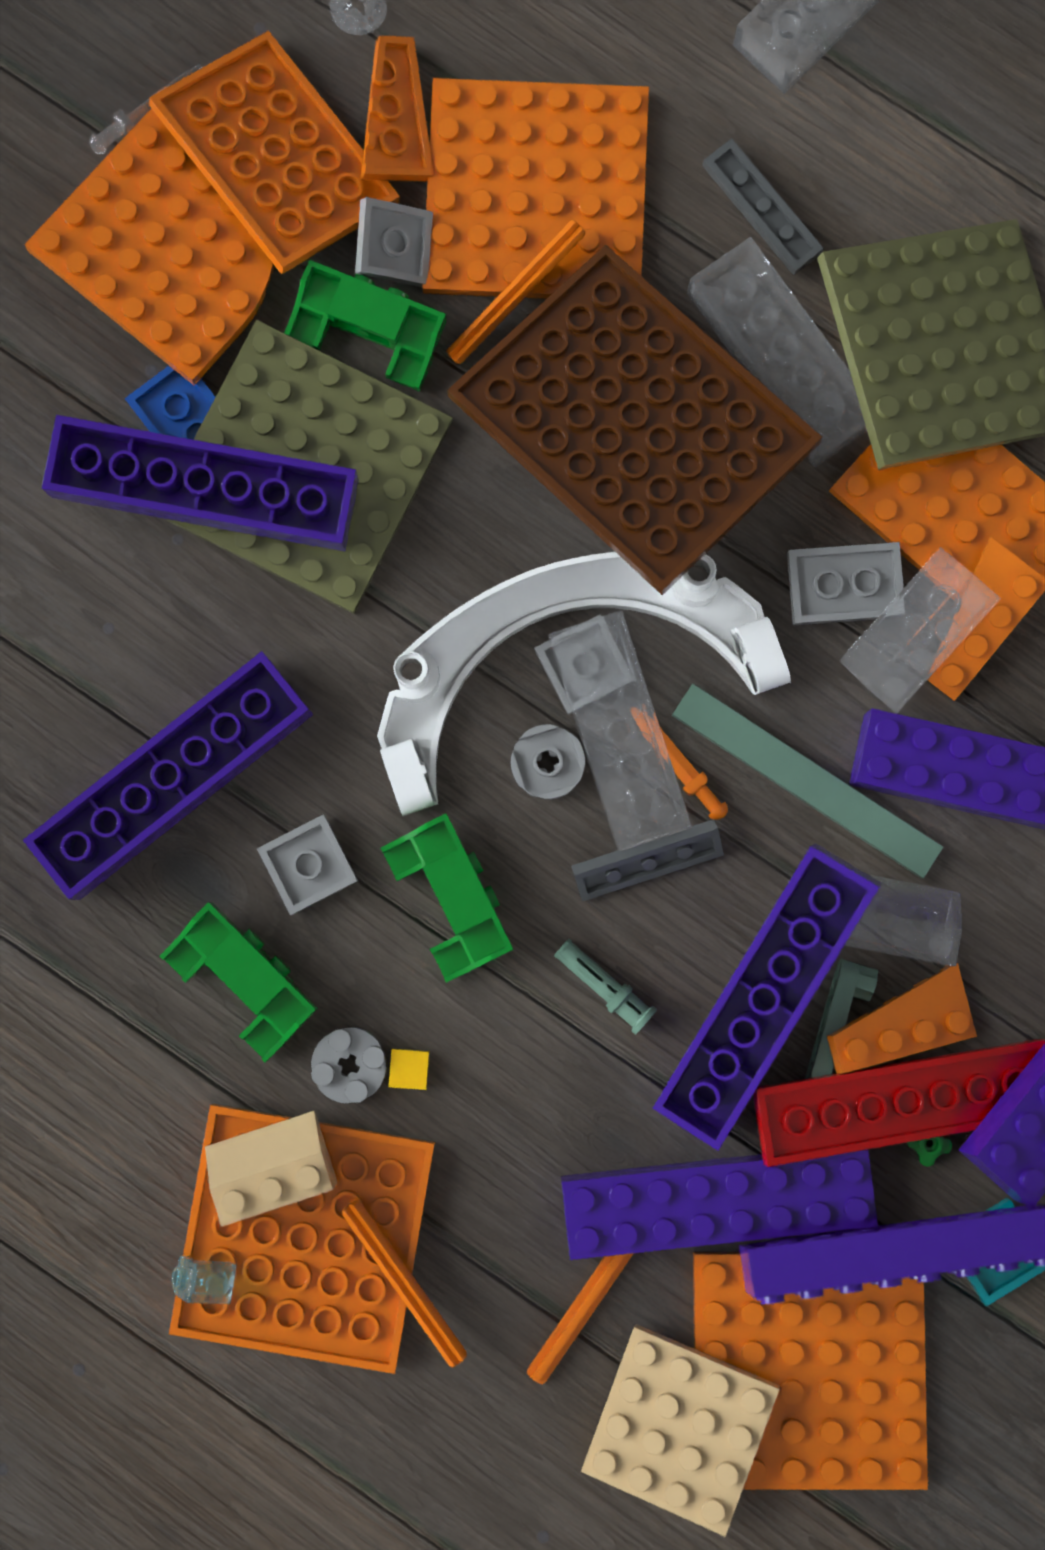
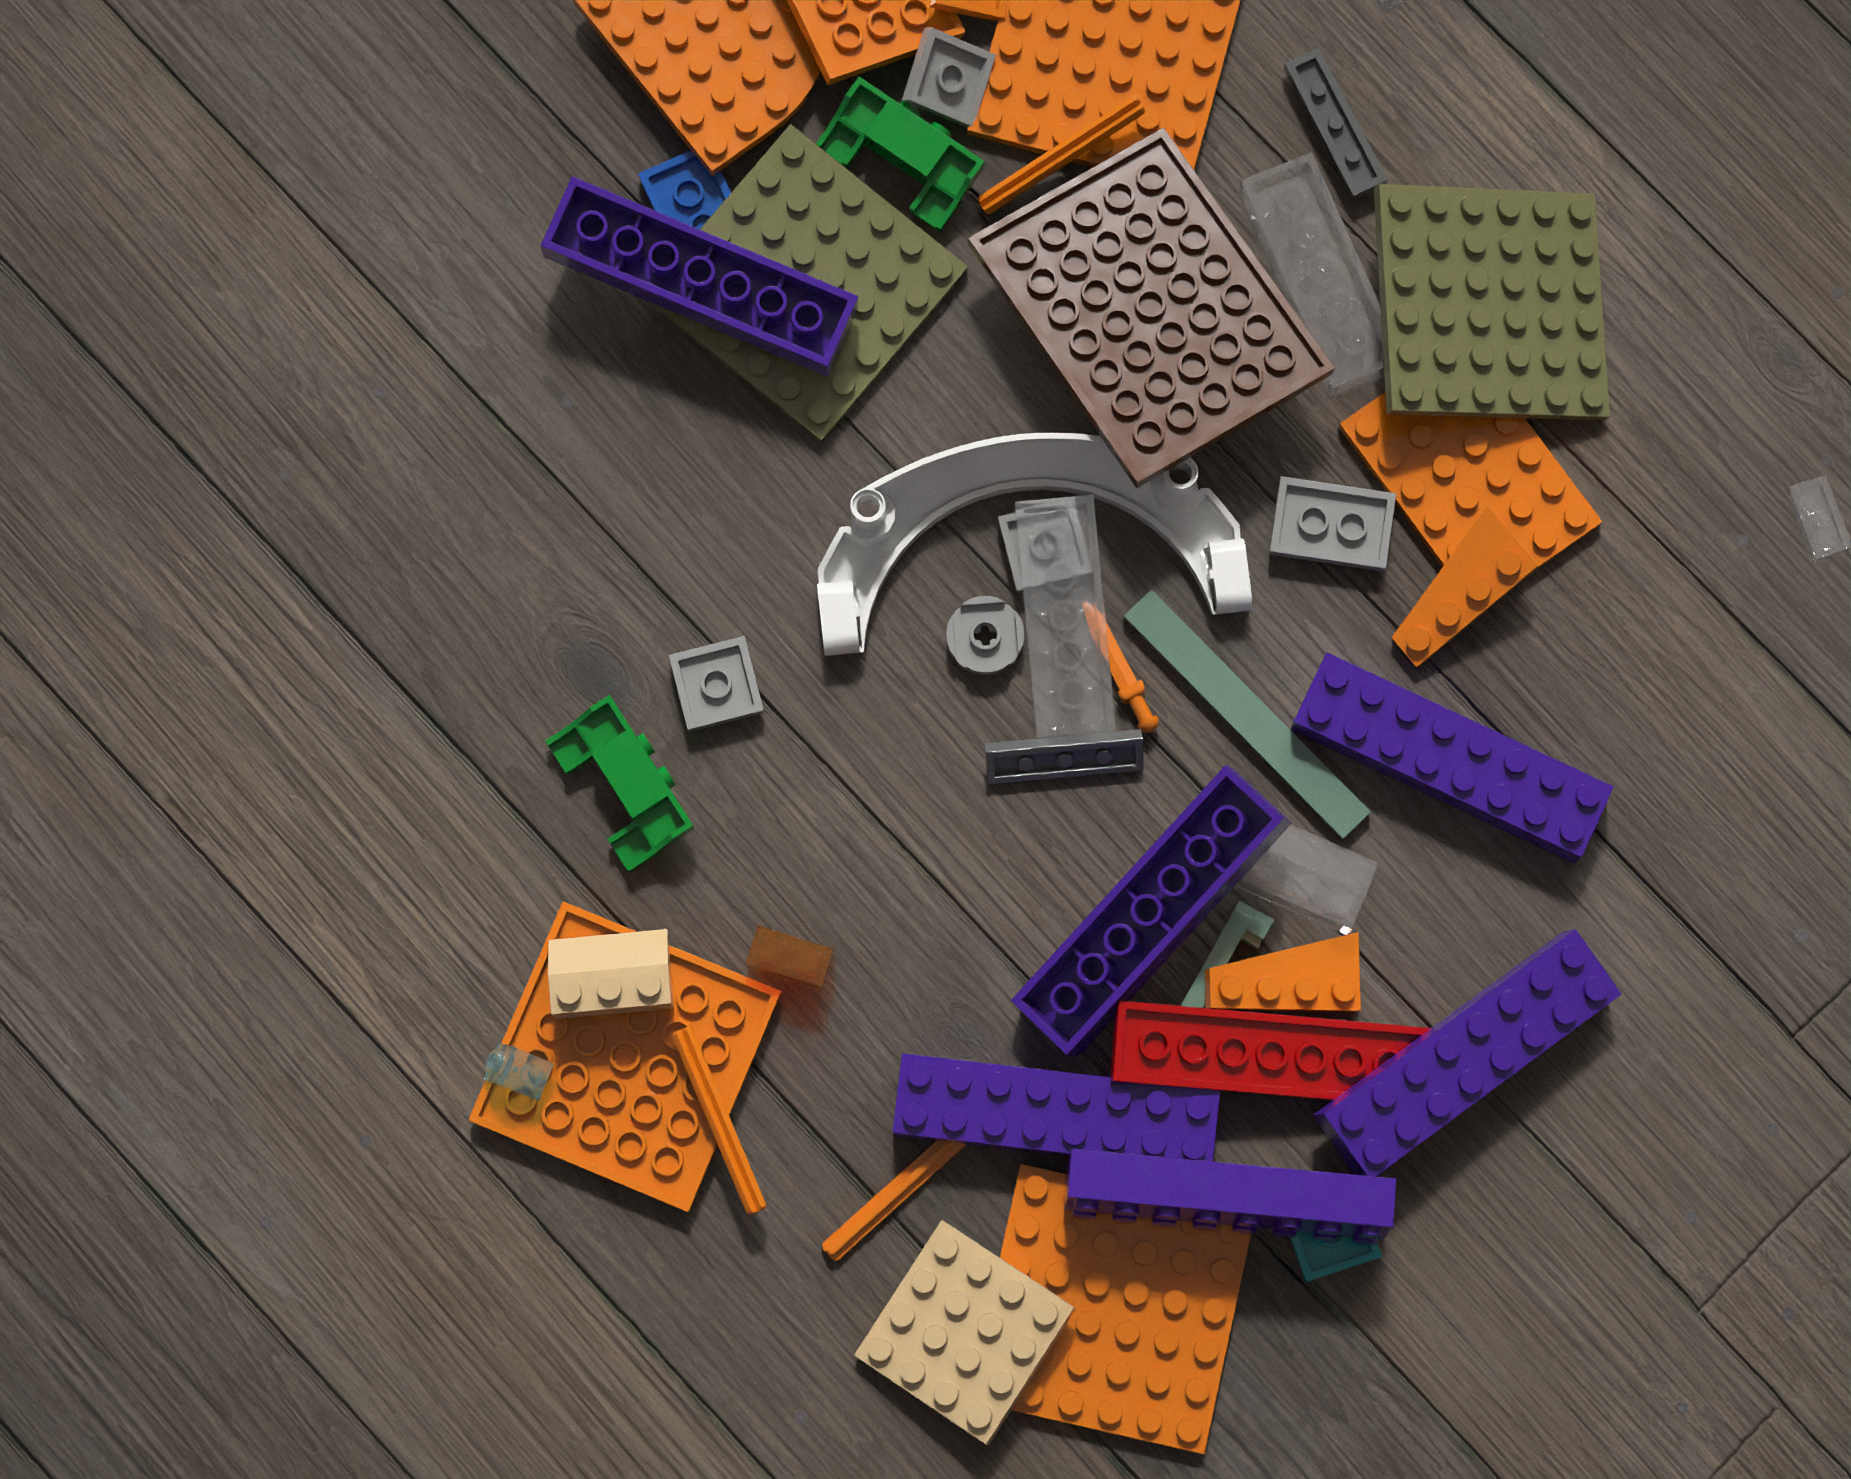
camera: 10 degrees right, 5 degrees down
(167, 777) = (598, 562): dark purple brick -> none
(328, 1072) = (712, 872): light grey plate -> none
(409, 1069) = (772, 911): yellow tile -> none
(435, 1111) = (790, 958): none -> clear orange brick
(459, 891) = (864, 738): green bracket -> none
(618, 997) = (1002, 888): sand green pin -> none
(919, 630) = (1392, 584): clear slope -> none
(928, 1154) = (1283, 1118): green plate -> none

